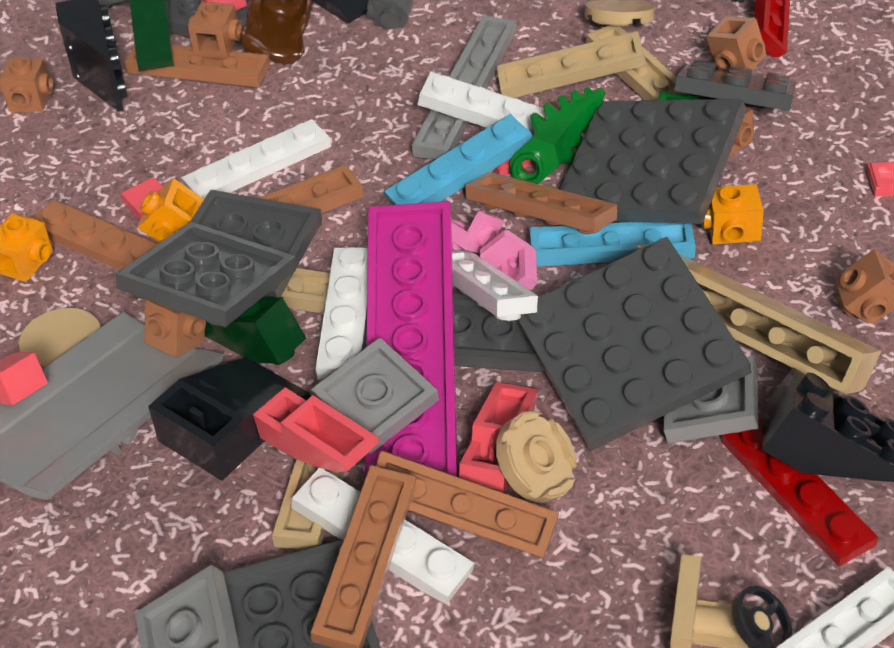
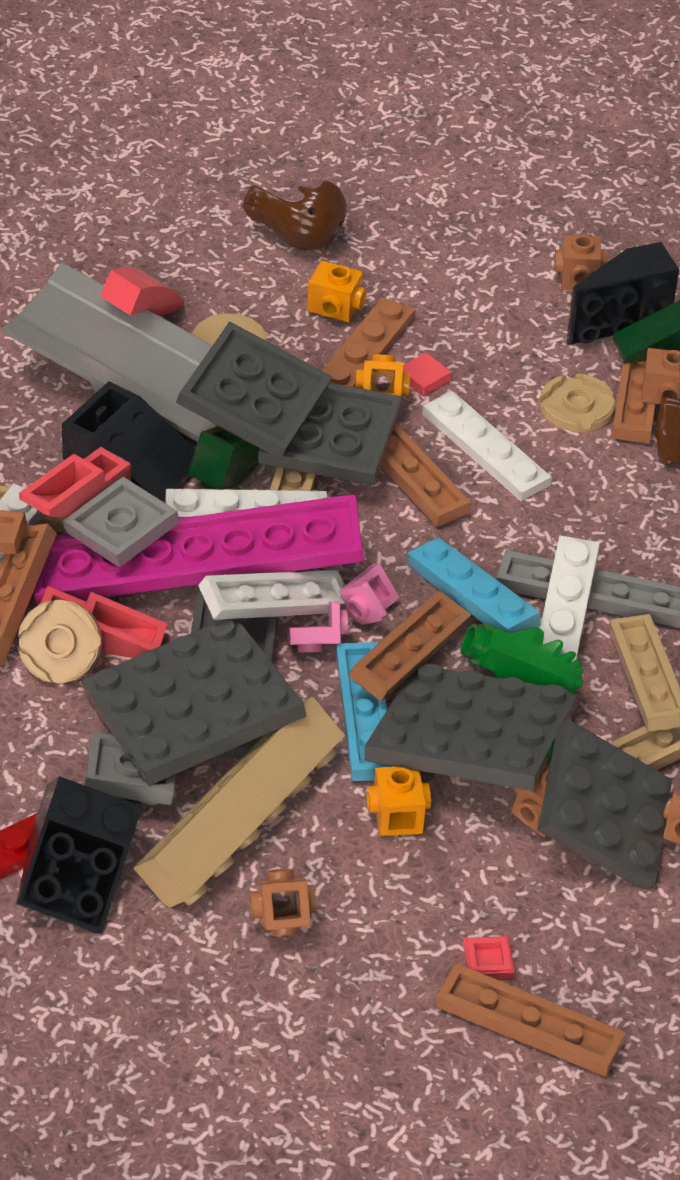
camera: 80 degrees right, 0 degrees up
(198, 112) = (566, 408): none -> tan tile

